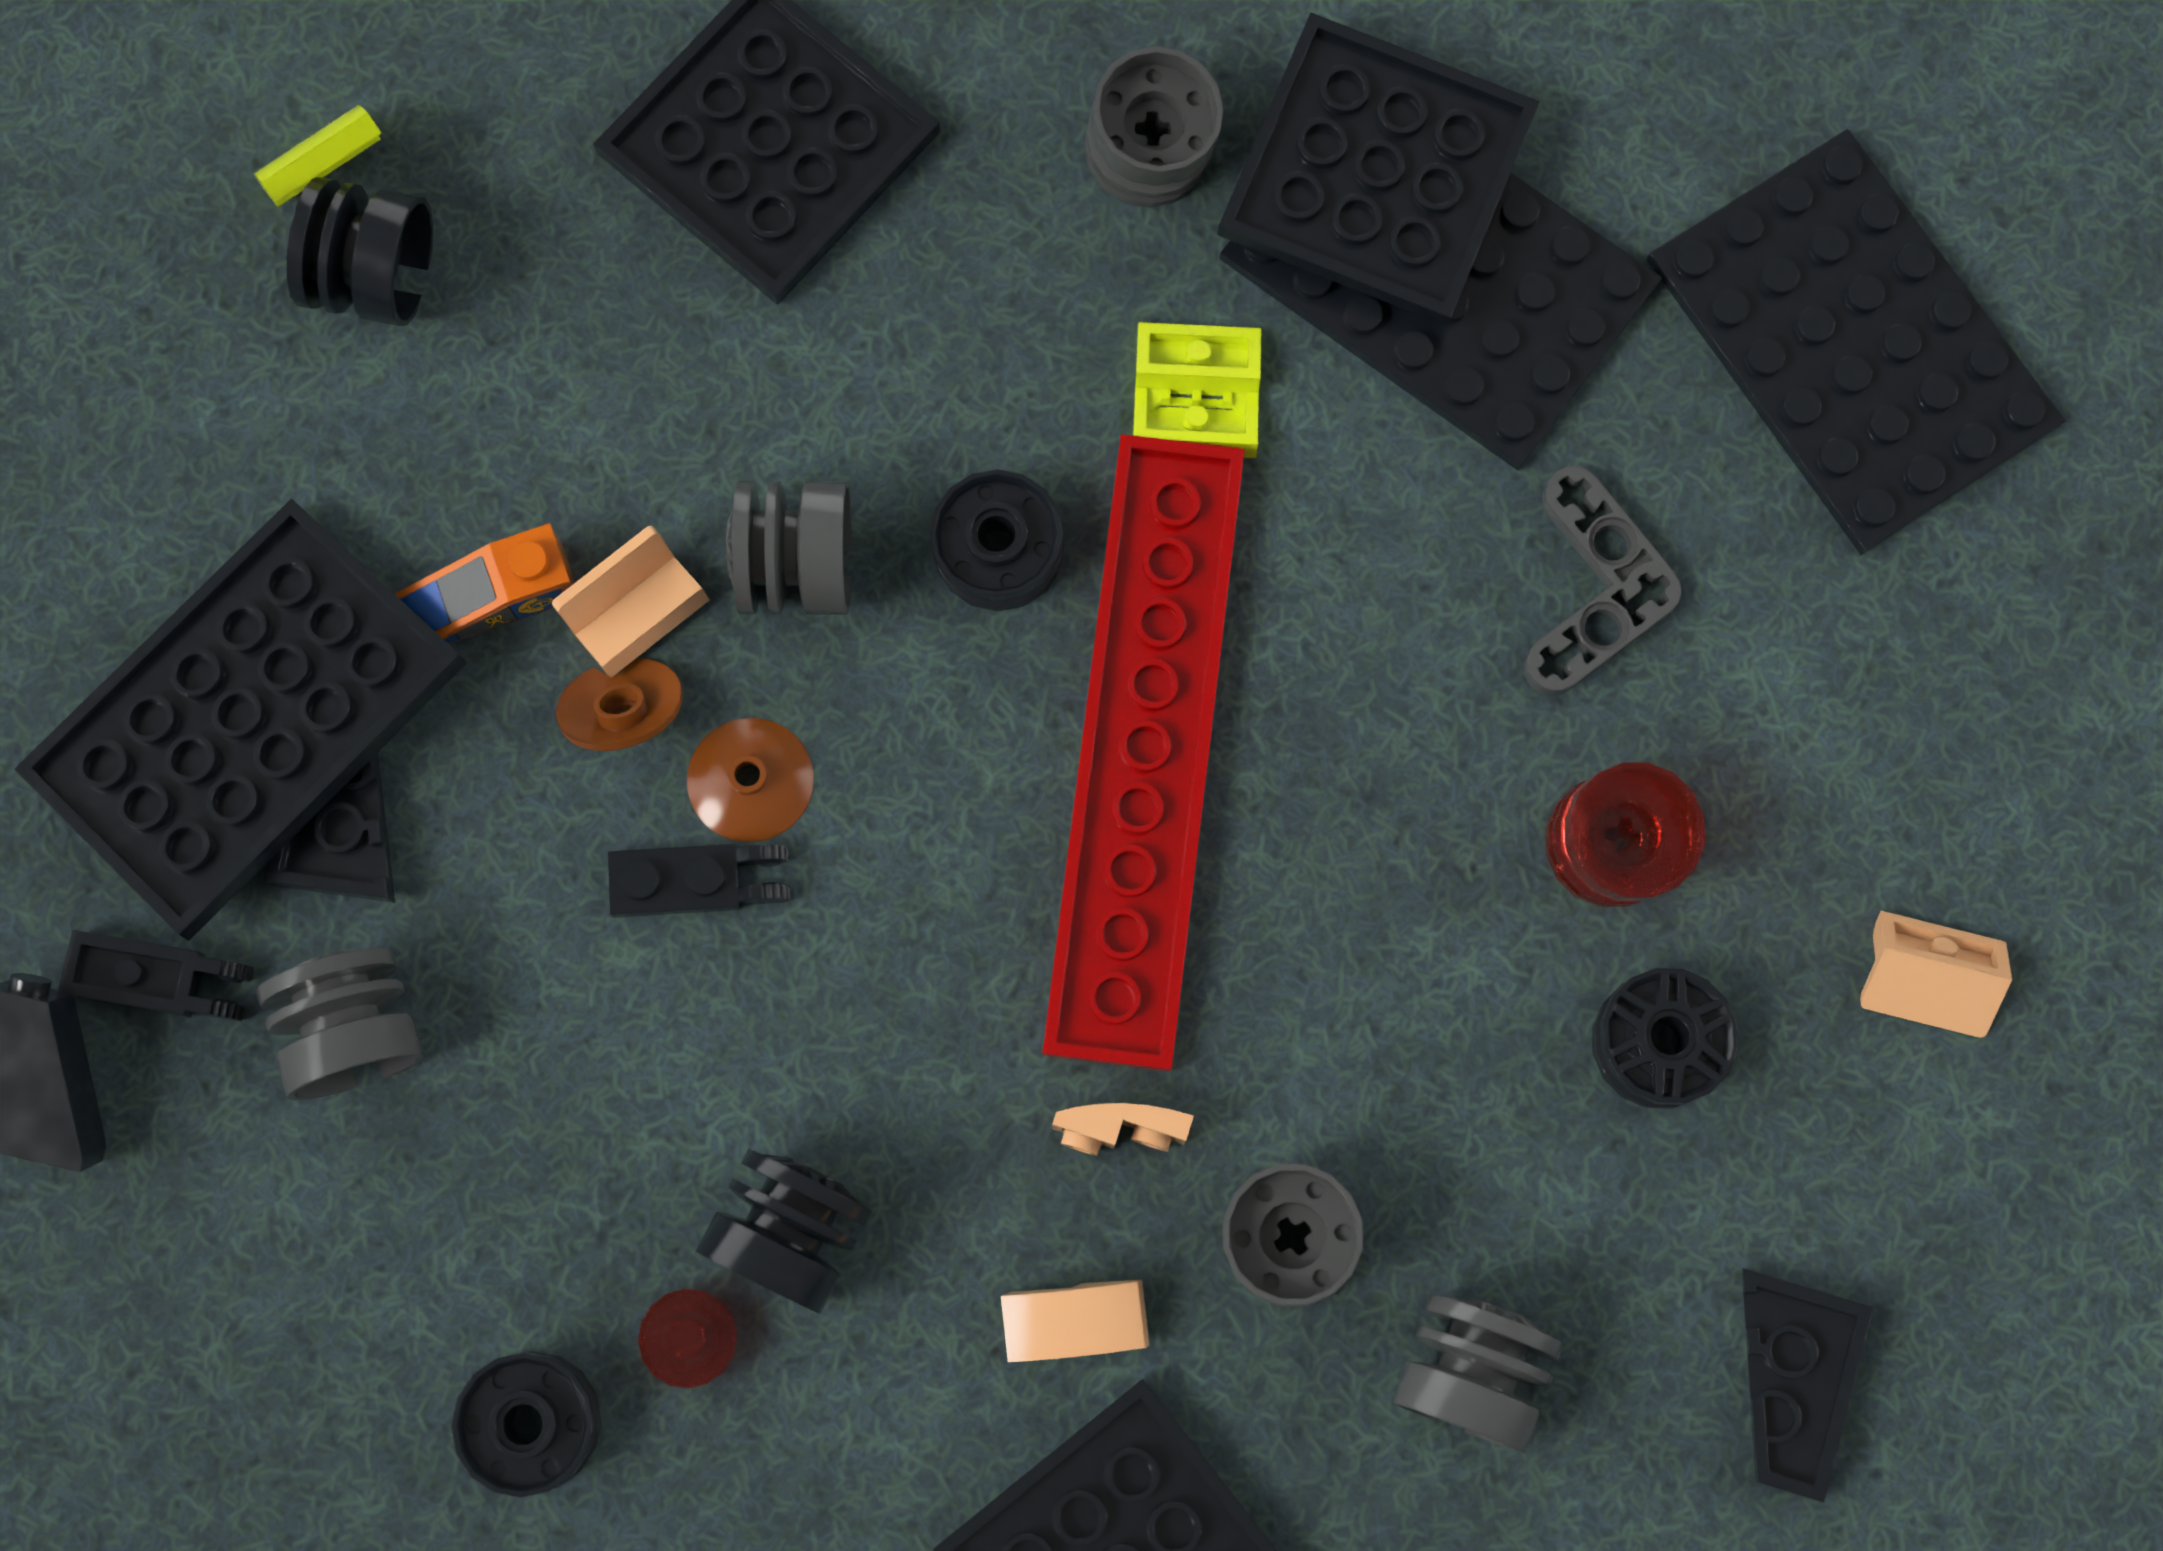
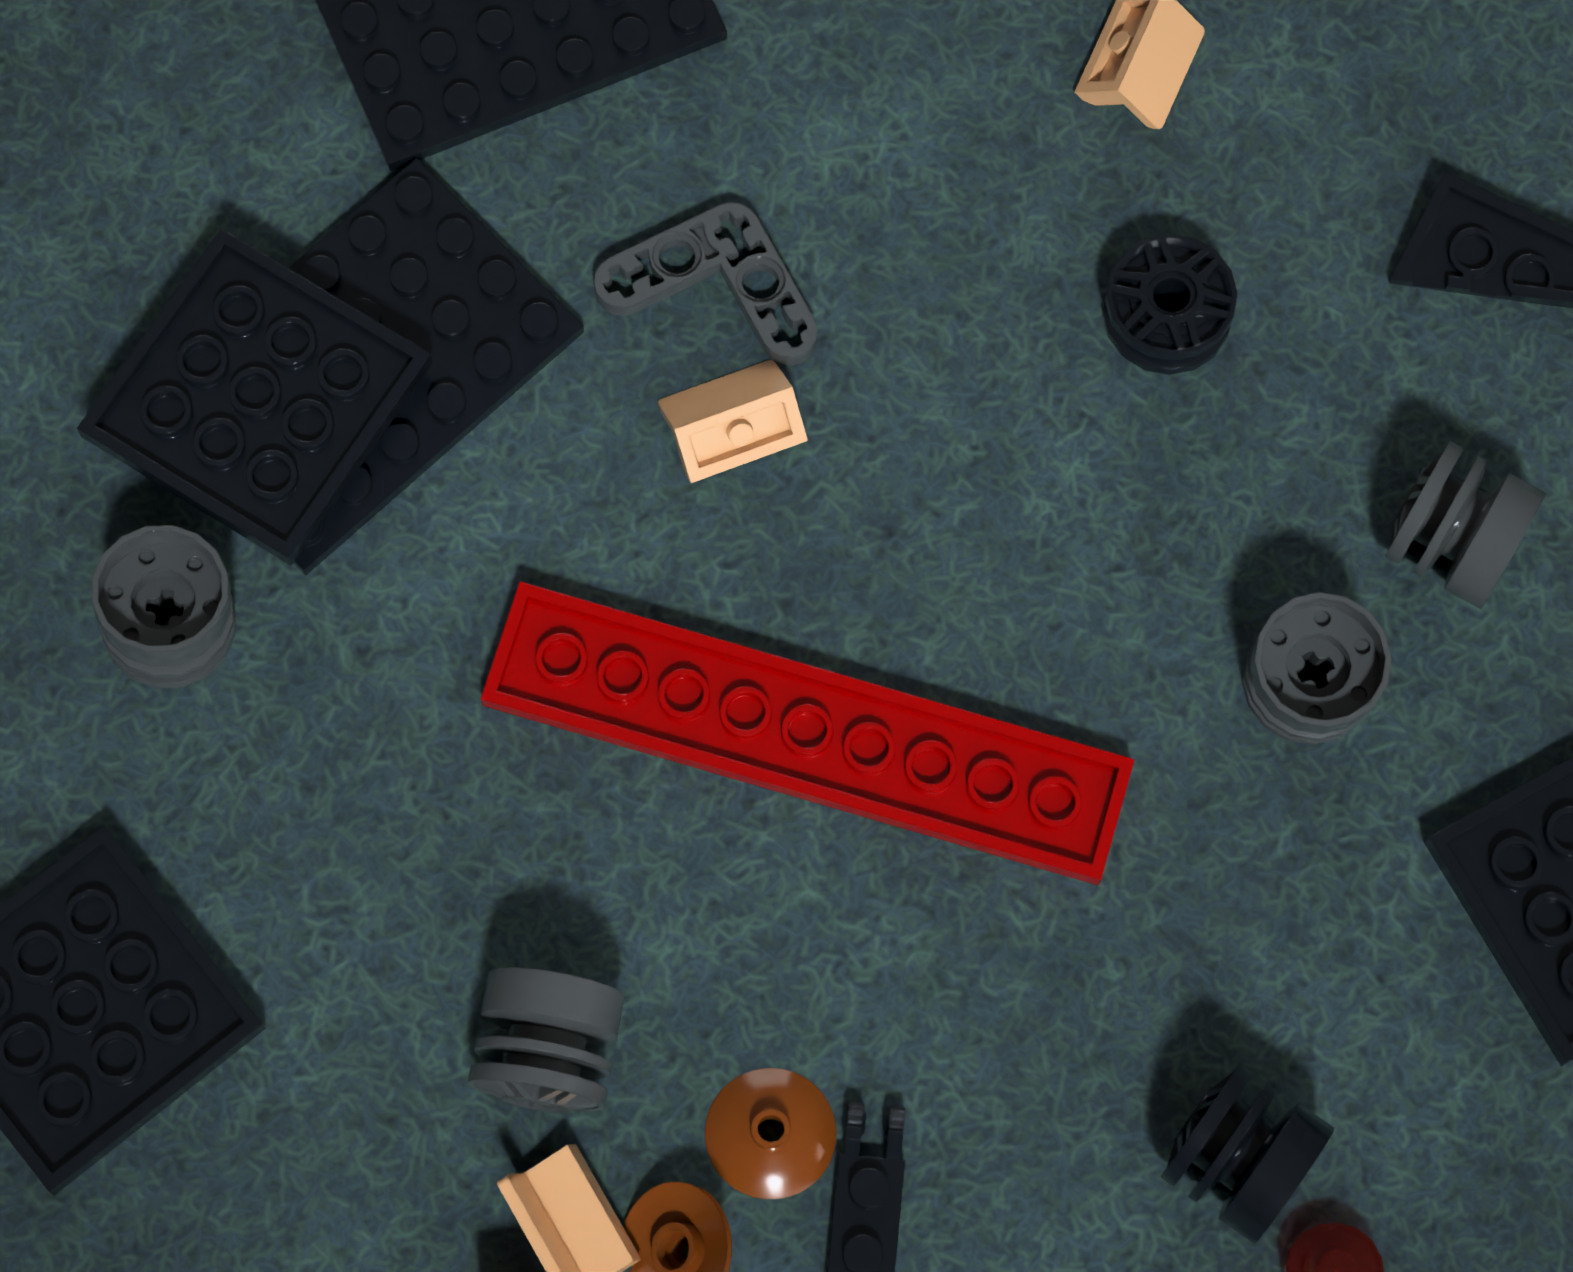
camera: 80 degrees left, 5 degrees down
(988, 504) = (561, 801): black wheel -> none
(1075, 1321) = (1365, 894): light nougat slope -> none
(1099, 1124) = (1178, 829): light nougat slope -> none
(1198, 363) = (415, 611): neon yellow slope -> none
(1452, 624) = (733, 420): none -> light nougat panel
(1651, 812) = (981, 264): clear red wheel -> none

